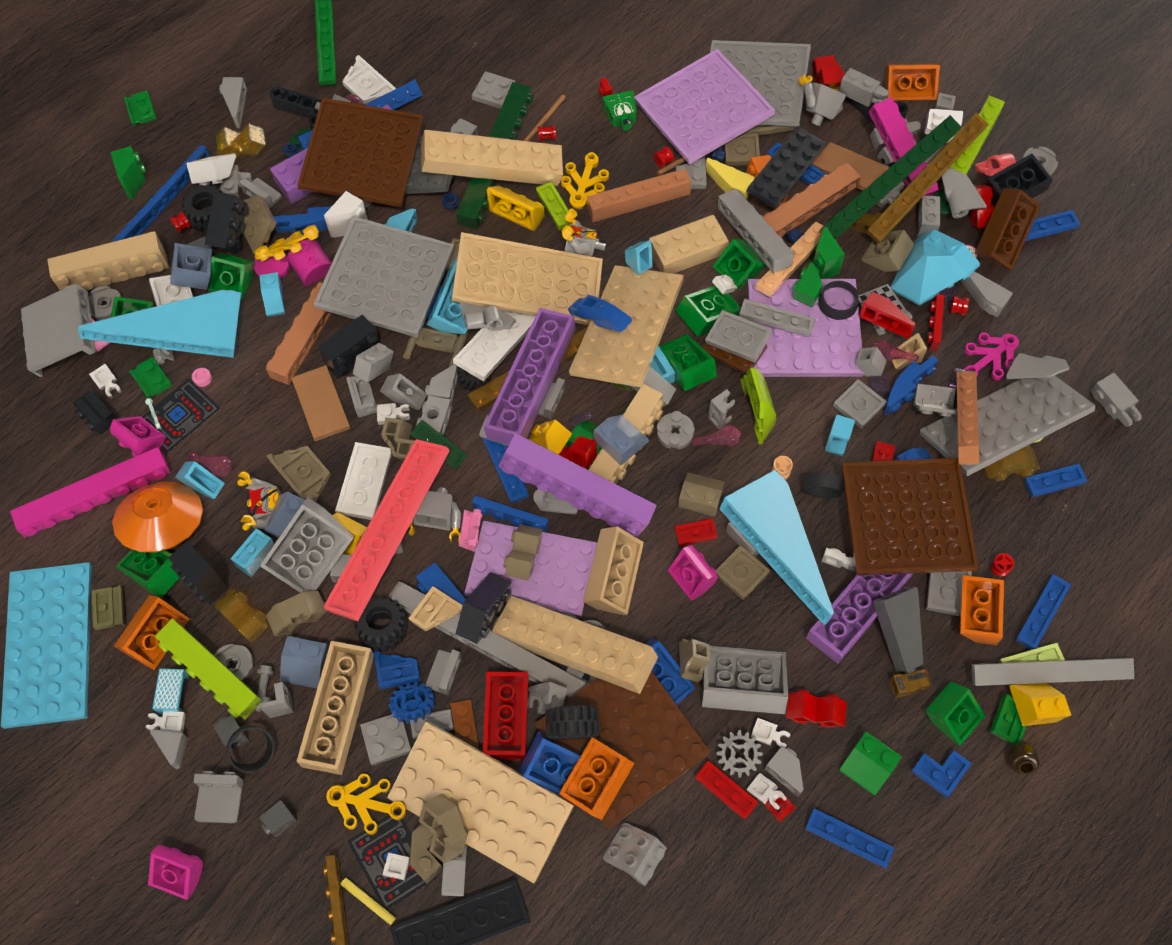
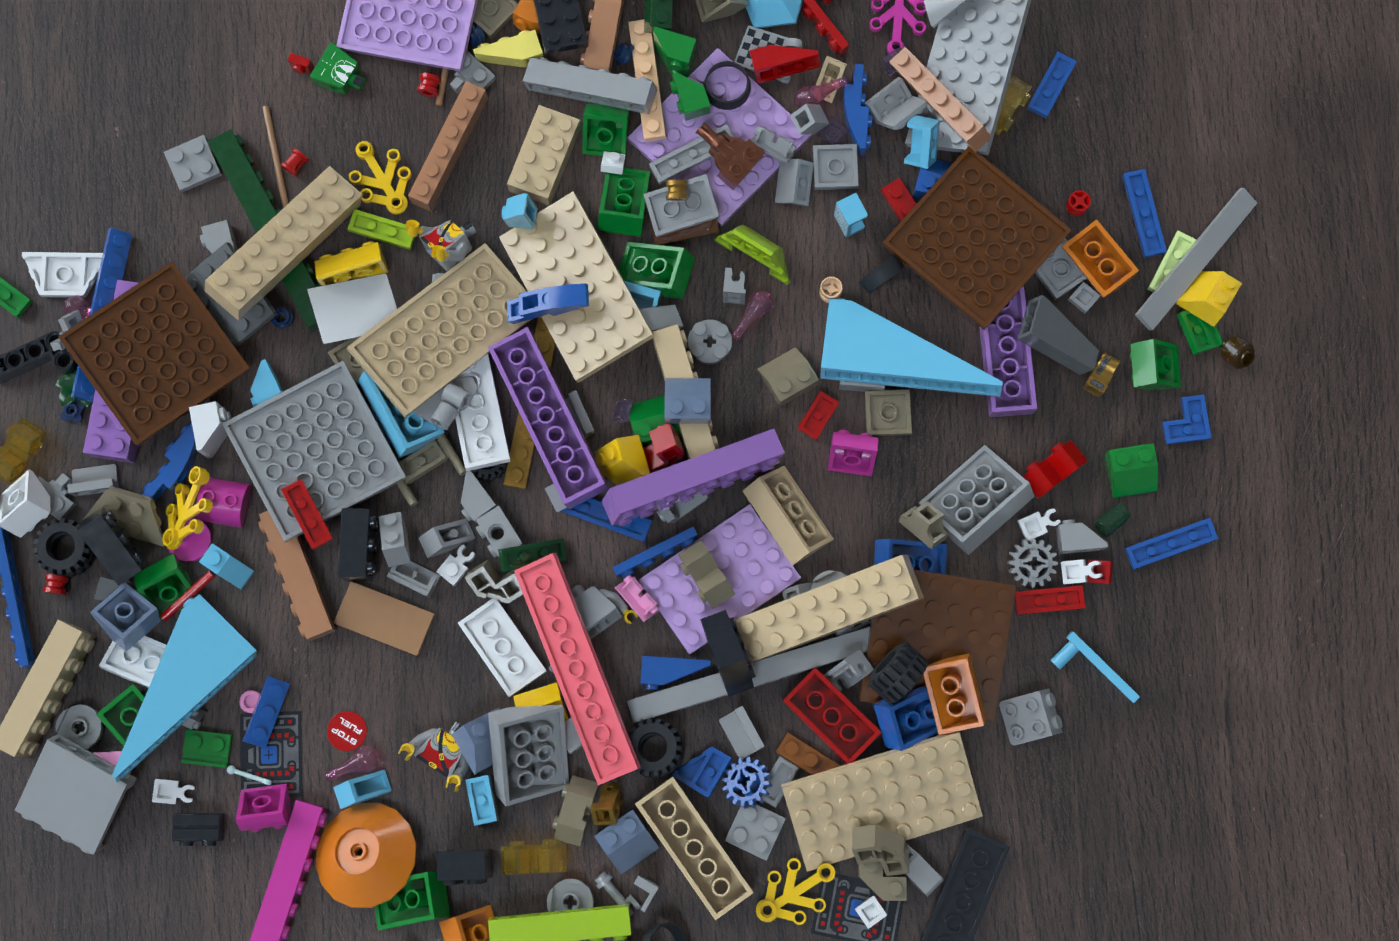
camera: 45 degrees left, 15 degrees up
(201, 388) = (266, 712): none -> blue plate
(231, 442) = (346, 731): none -> red sticker
(242, 288) = (190, 593): none -> red bar
(301, 471) = (441, 693): dark tan wing -> none
(316, 627) = (609, 805): none -> pearl gold leg
(340, 300) = (307, 514): none -> red plate
(434, 610) = (688, 693): tan wing -> none
(489, 221) = (351, 307): none -> white sticker
(715, 837) = (1076, 644): none -> medium azure piece
(743, 321) = (676, 190): none -> pearl gold wheel
(799, 337) = (731, 155): none -> copper brick
(823, 781) = (1112, 520): none -> clear green piece
(825, 389) = (794, 182): none -> light grey panel
(834, 361) = (781, 150): none -> light grey hinge
(838, 559) = (948, 326): white plate -> none
(933, 434) = (924, 141): none -> medium azure panel
(947, 625) = (1084, 297): none -> light grey plate

